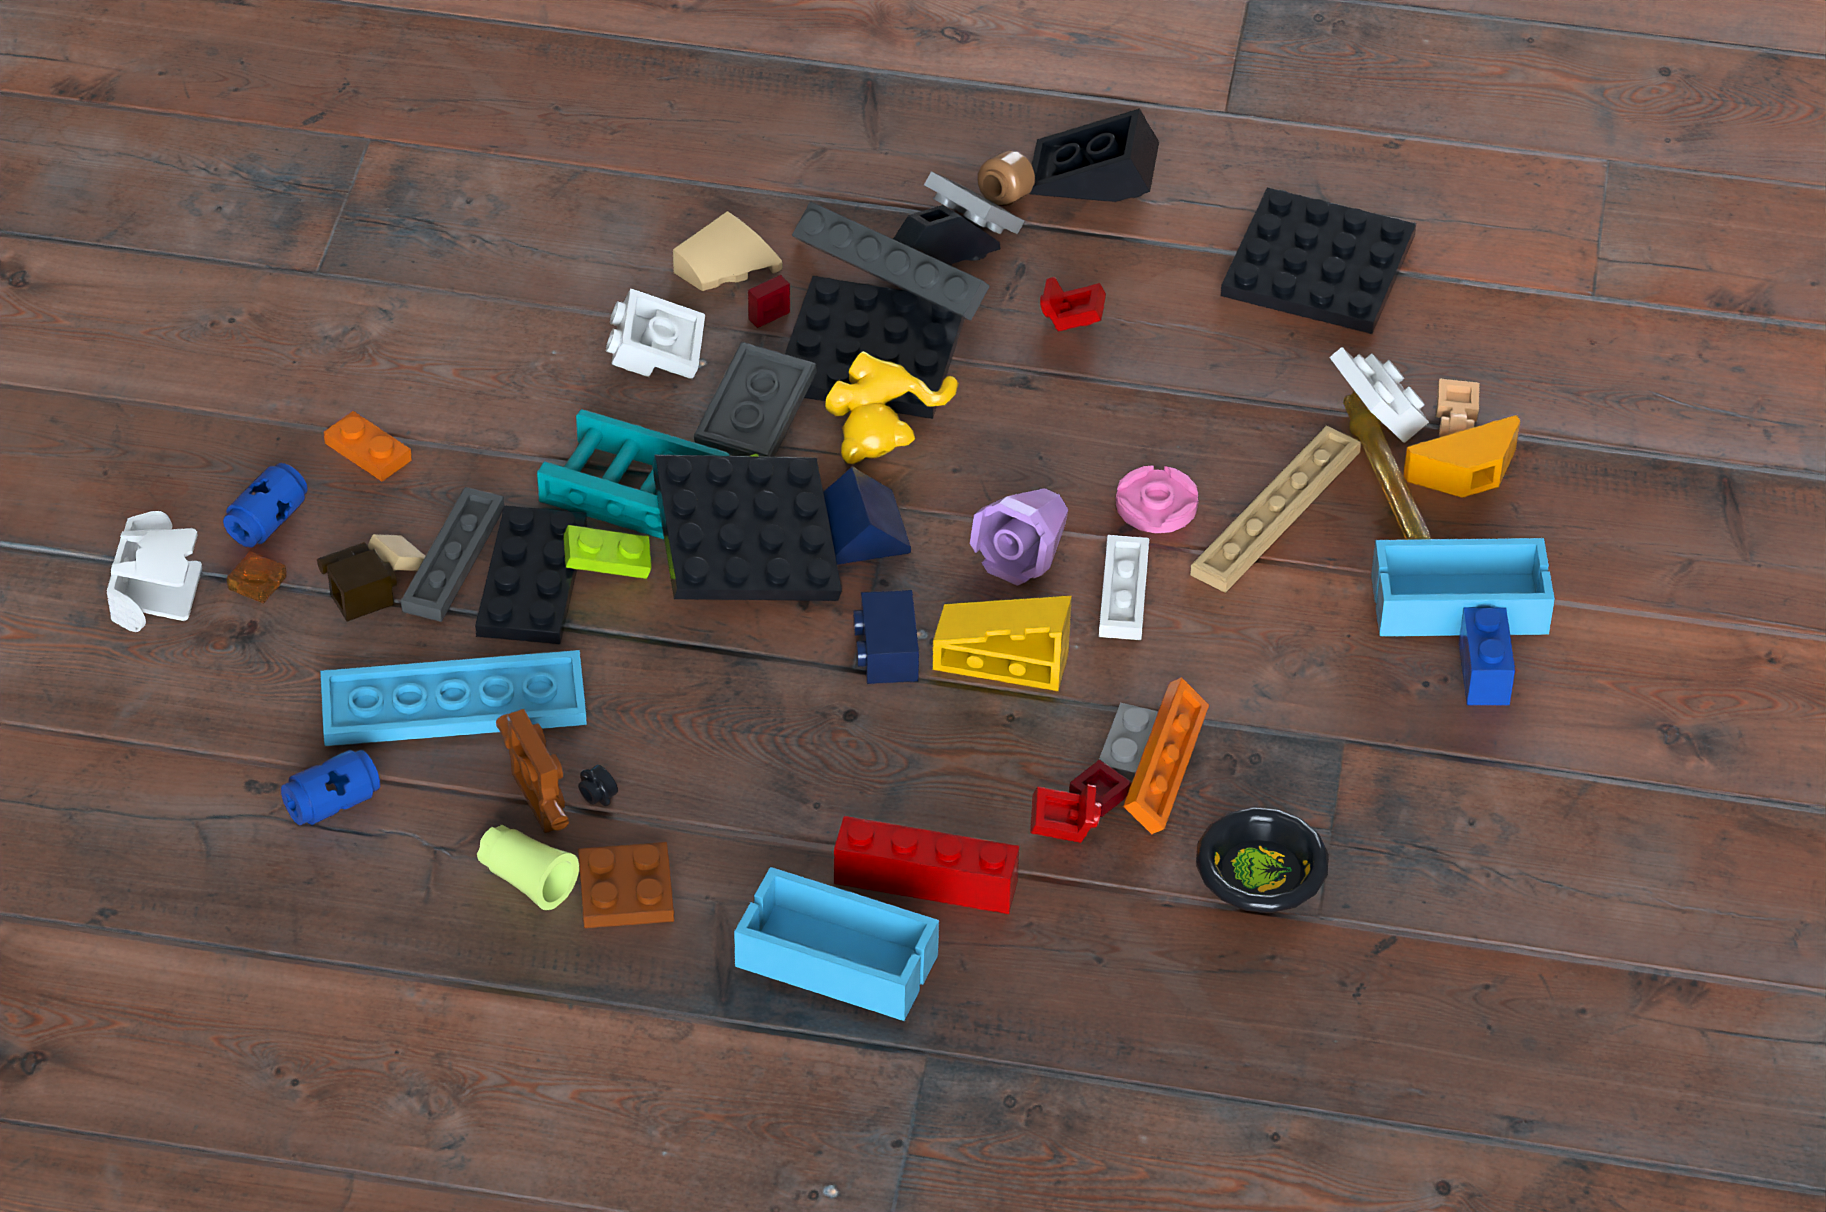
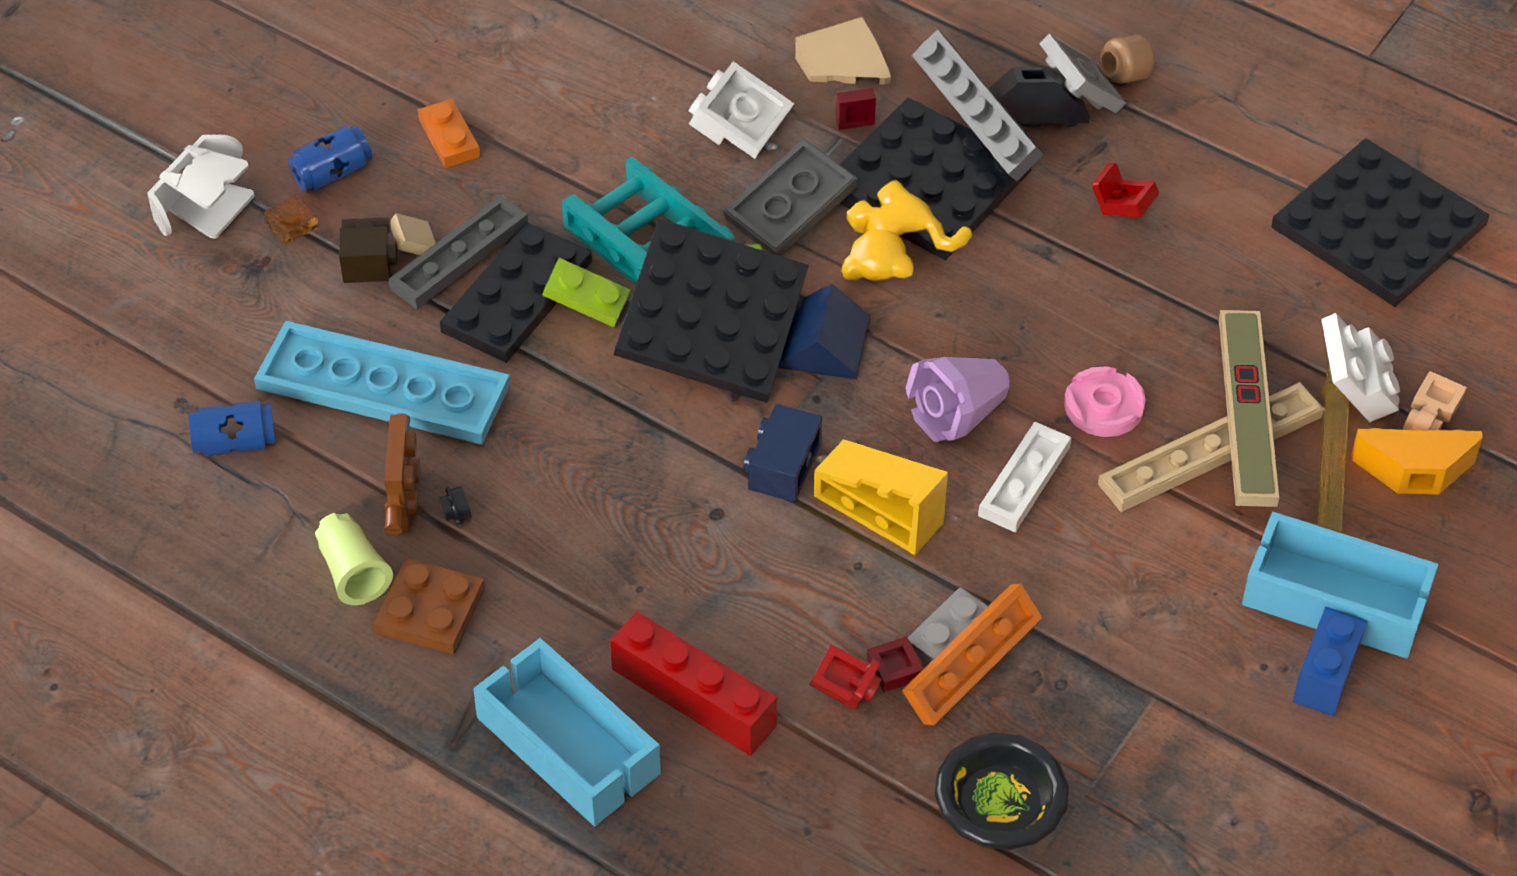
camera: 25 degrees right, 5 degrees up
(1097, 160) = (1221, 67): black slope -> none
(1296, 461) = (1248, 409): none -> tile

